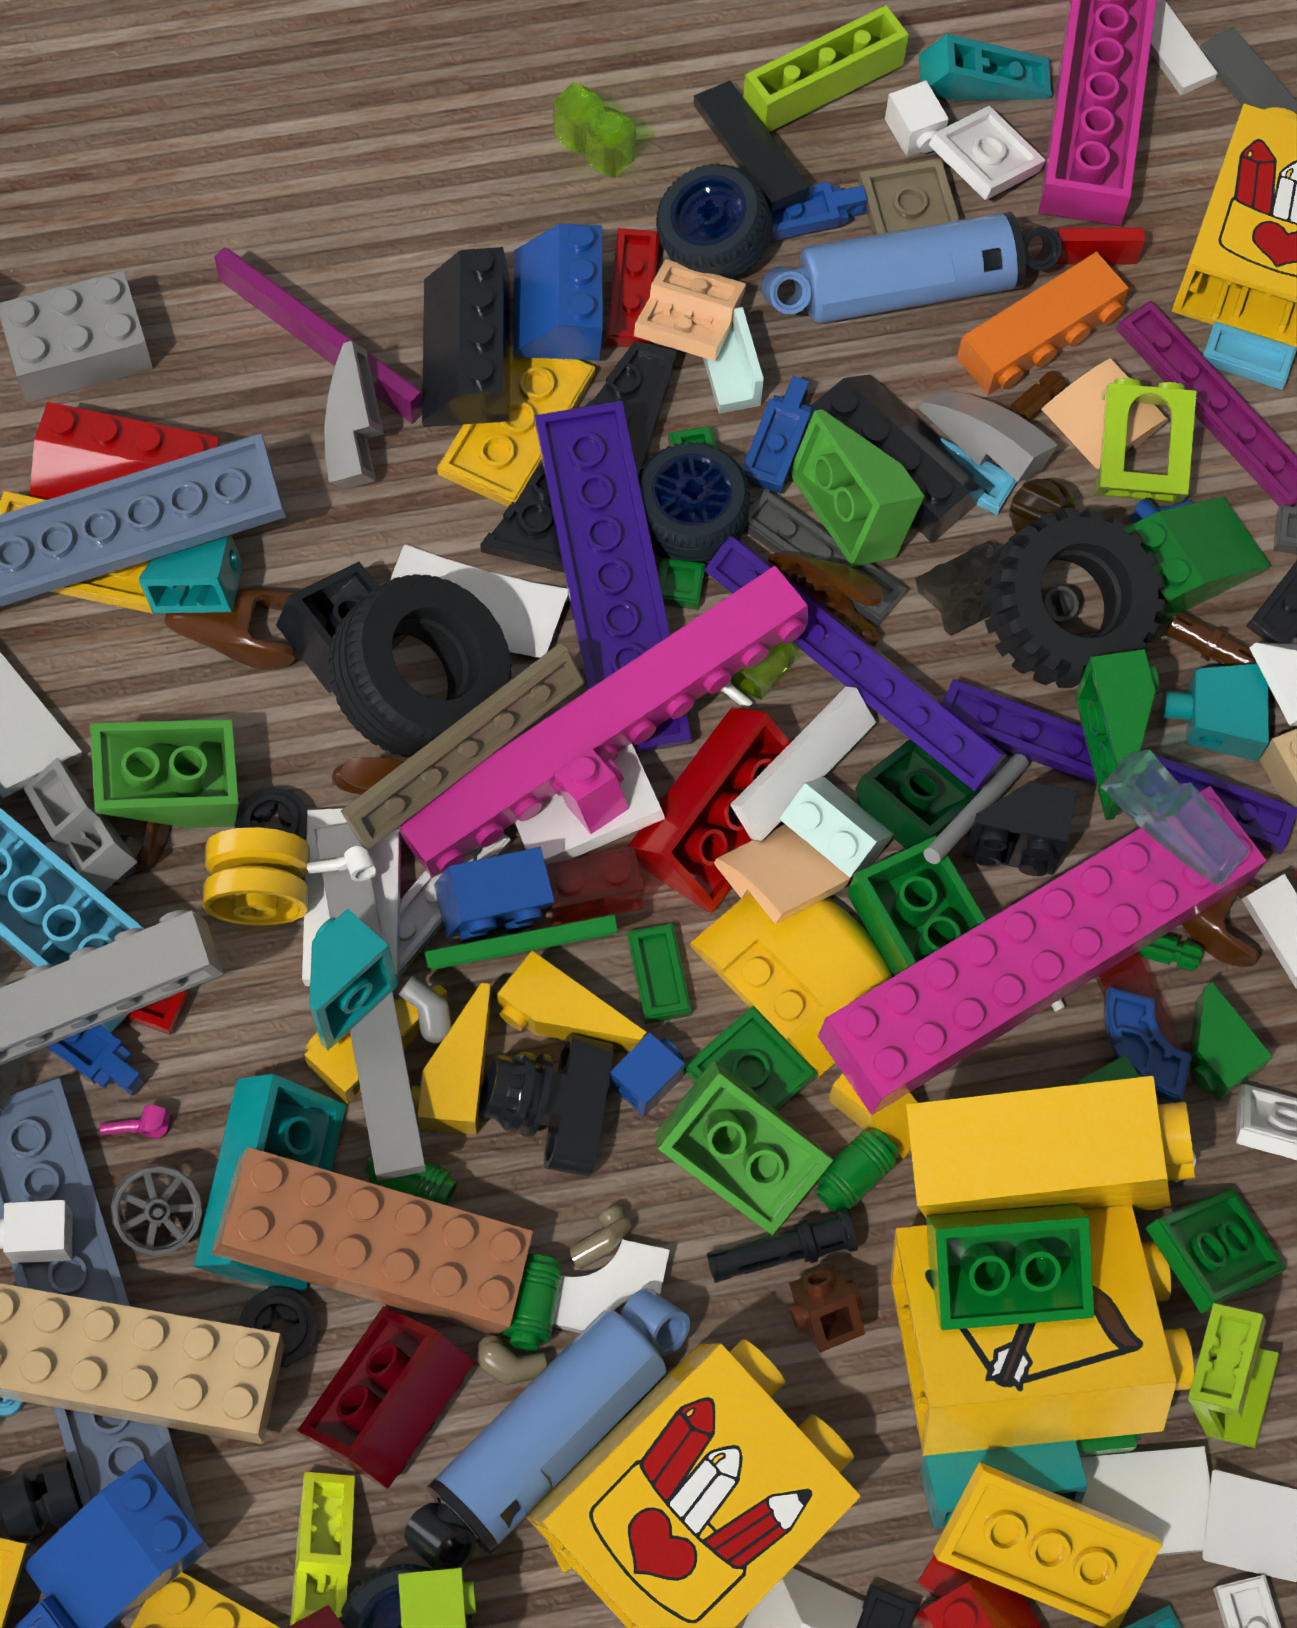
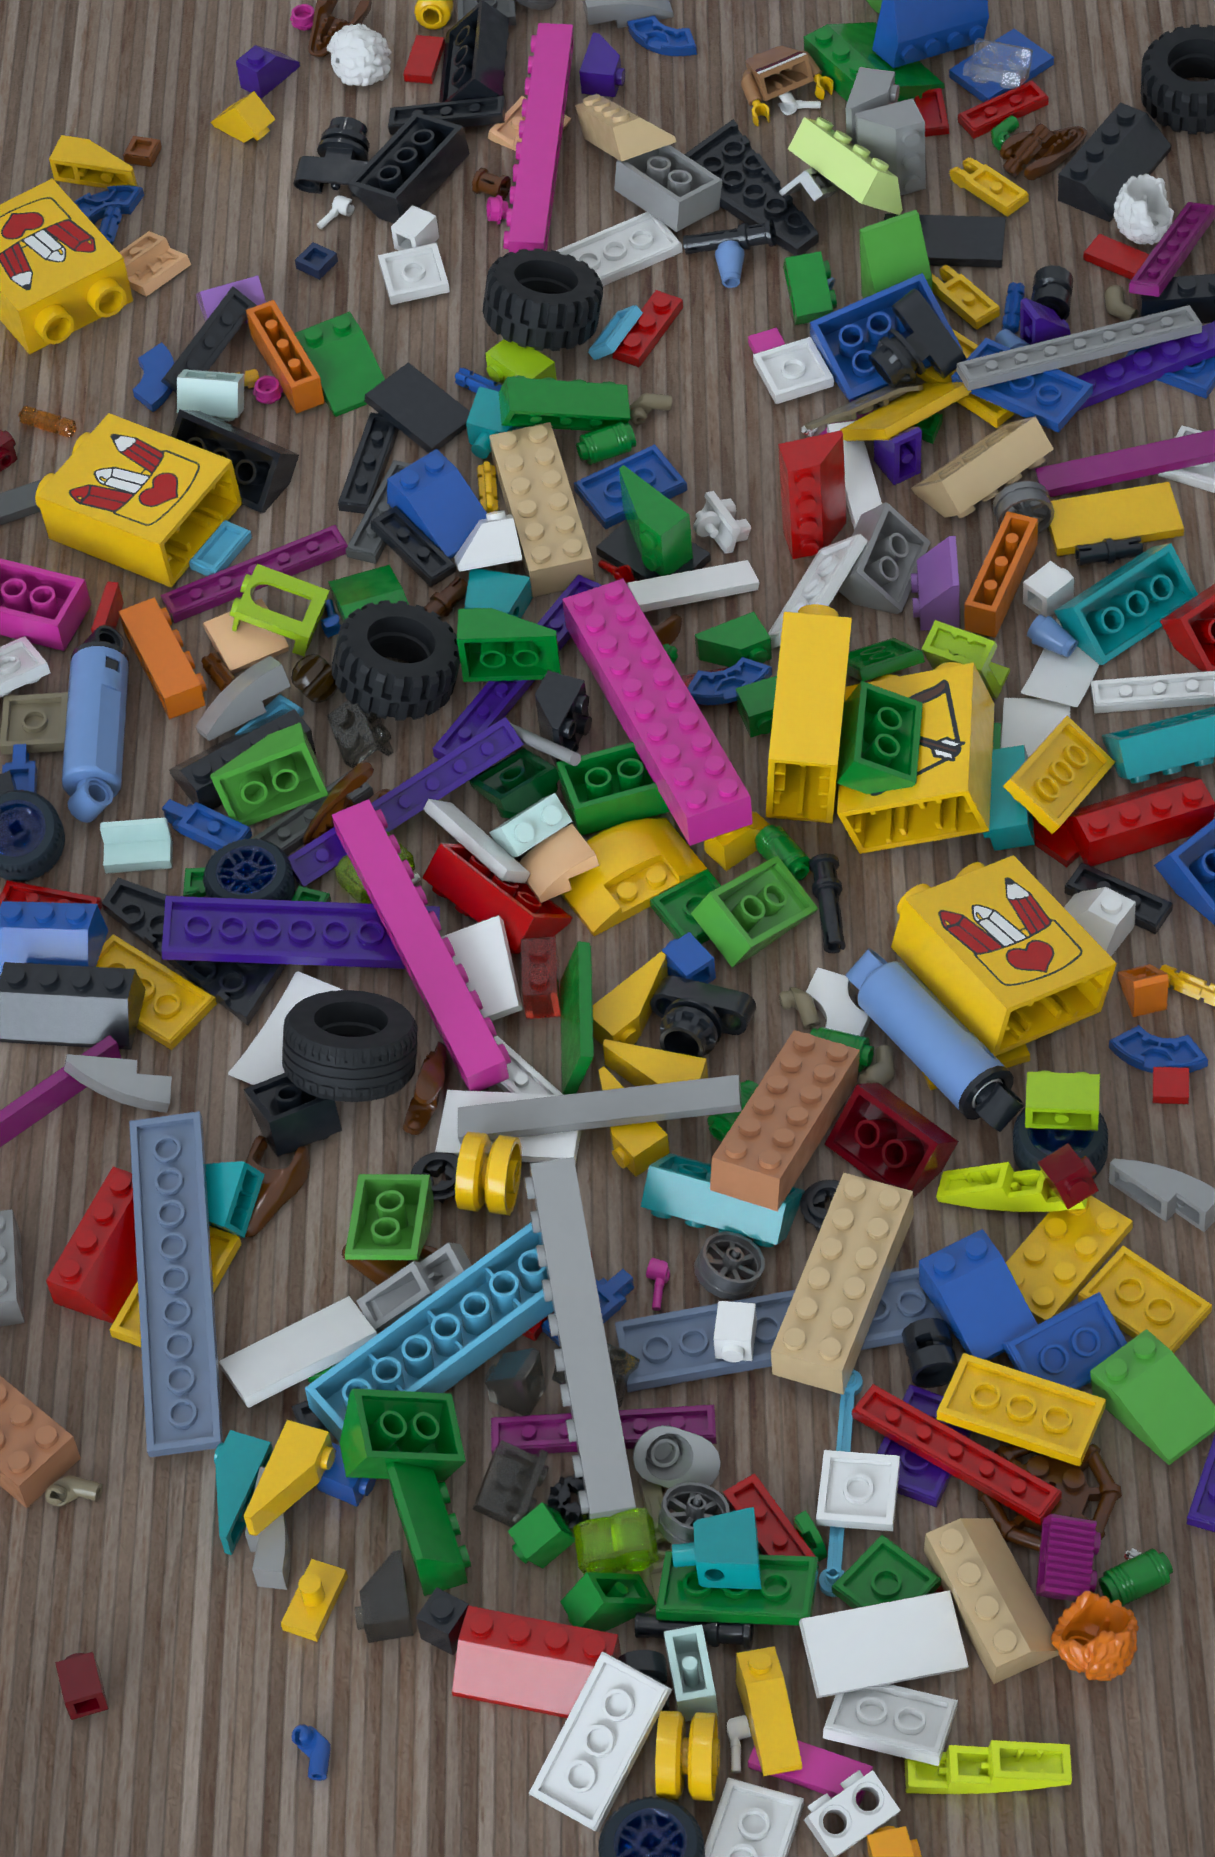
camera: 70 degrees left, 15 degrees down
(348, 975) = (591, 1097): teal slope -> none
(355, 859) = (495, 1102): white hand -> none
(432, 1010) = (617, 1071): light grey arm -> none
(463, 746) = (425, 1019): dark tan tile -> none
(493, 894) = (539, 1025): blue brick -> none
(592, 790) = (475, 952): dark pink brick -> none
(658, 973) = (617, 953): green tile -> none
(689, 310) = (86, 863): light nougat slope -> none
(826, 1308) = (877, 877): copper brick -> none
(1175, 816) = (585, 610): clear light blue slope -> none

